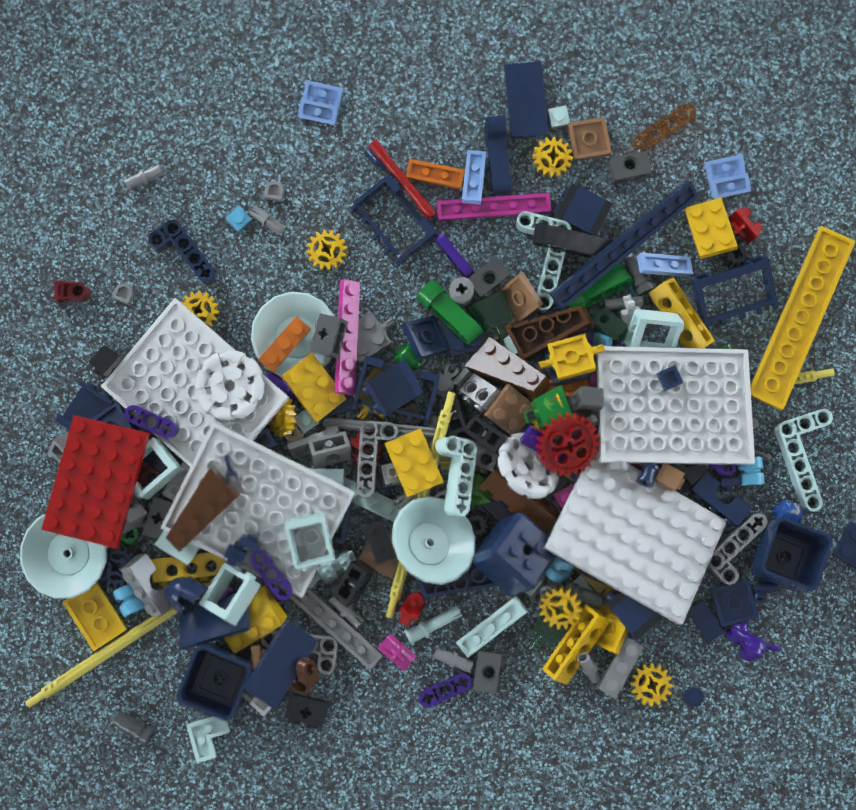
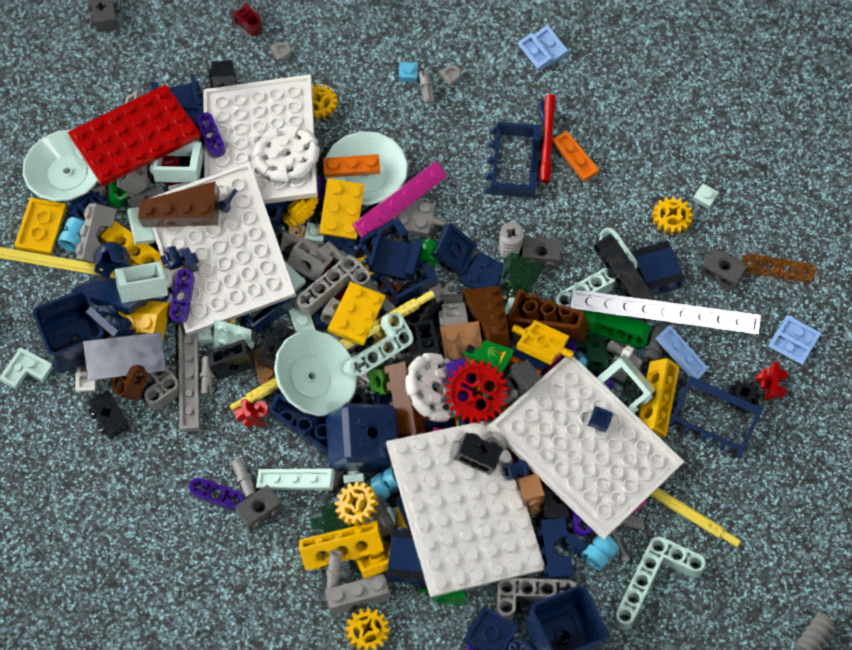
camera: 50 degrees right, 20 degrees down
(187, 253) = (354, 43): dark blue beam -> none
(245, 650) = (111, 320): none -> dark blue plate
(302, 521) = (235, 274): light aqua window -> none
(328, 336) = (386, 183): dark grey brick -> none
(332, 246) = (452, 144): yellow gear -> none
(397, 652) = (211, 434): dark pink hips -> none
(424, 629) = (247, 439): light aqua pin -> none
(435, 299) = (488, 233): green beam -> none
(453, 255) = (532, 215): dark purple beam -> none
(474, 177) = (600, 179): light blue plate -> none
(494, 207) = (594, 211): dark pink plate -> none
(498, 154) = (635, 179): dark blue beam -> none
(521, 297) = (551, 280): medium nougat plate -> none
(526, 100) = (692, 164): dark blue tile -> none
(589, 139) = (713, 227): medium nougat plate -> none
(606, 497) = (485, 460): none -> black brick
(705, 621) = (455, 627): dark blue tile -> none
(710, 228) = (742, 359): yellow plate -> none
(788, 510) = (603, 605): blue head -> none
(801, 318) = (750, 480): yellow plate -> none

